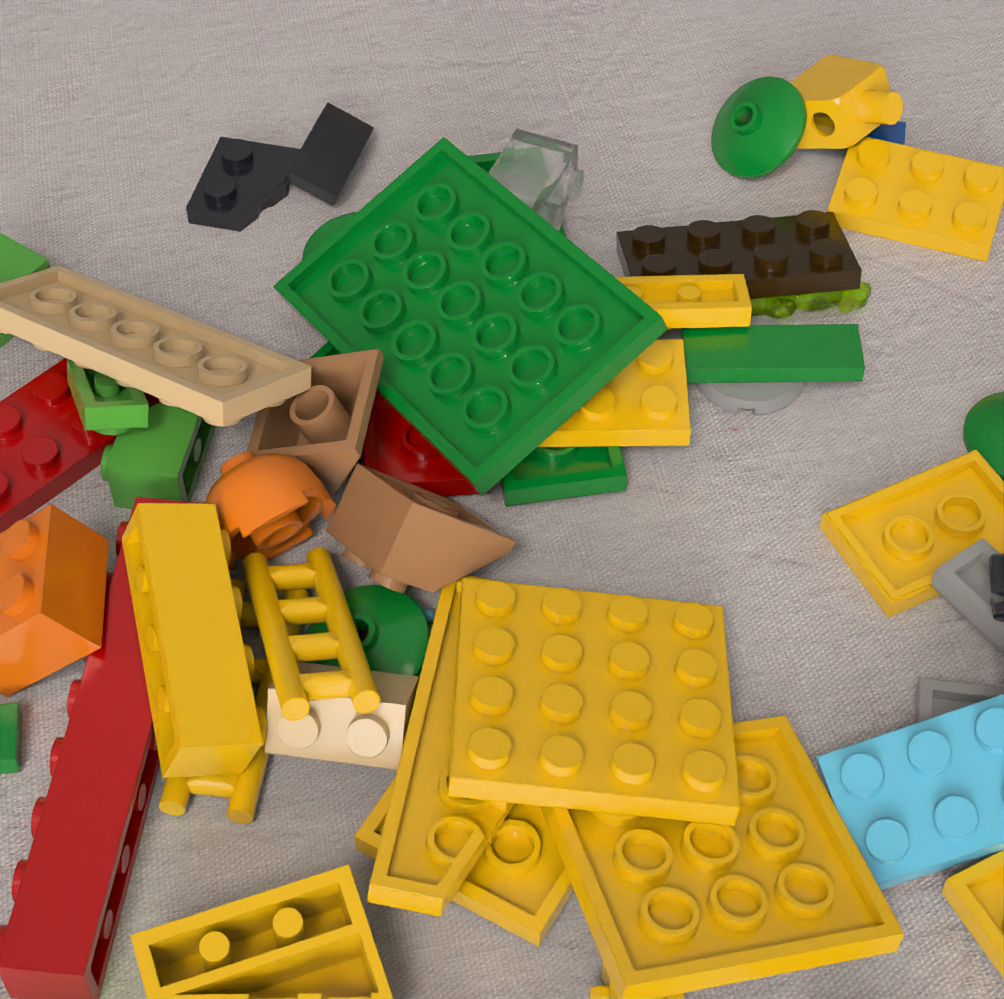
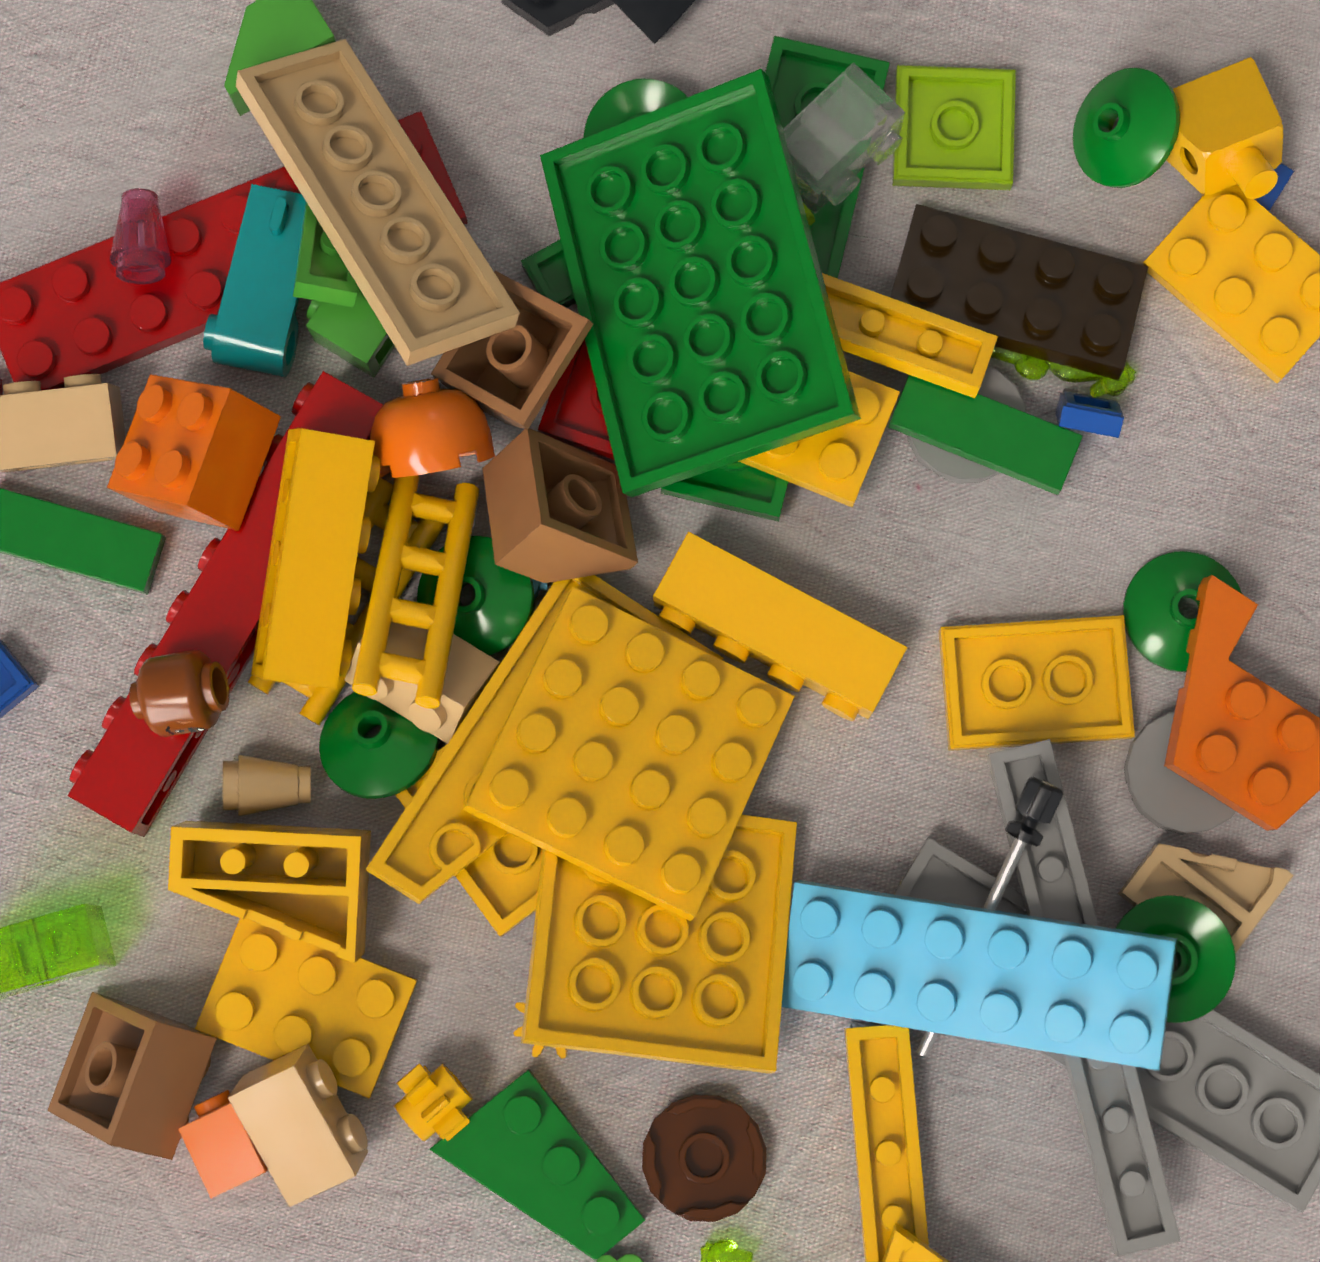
camera: 25 degrees right, 30 degrees up
(49, 455) = (258, 309): none -> teal door
(92, 801) = (180, 693): none -> dark orange head
(213, 884) = (264, 785): none -> tan cone
(322, 808) = (377, 764): none -> green dish
(625, 184) = (955, 127): none -> lime tile
(680, 556) = (777, 626): none -> yellow brick
(864, 310) = (1089, 414): none -> blue tile

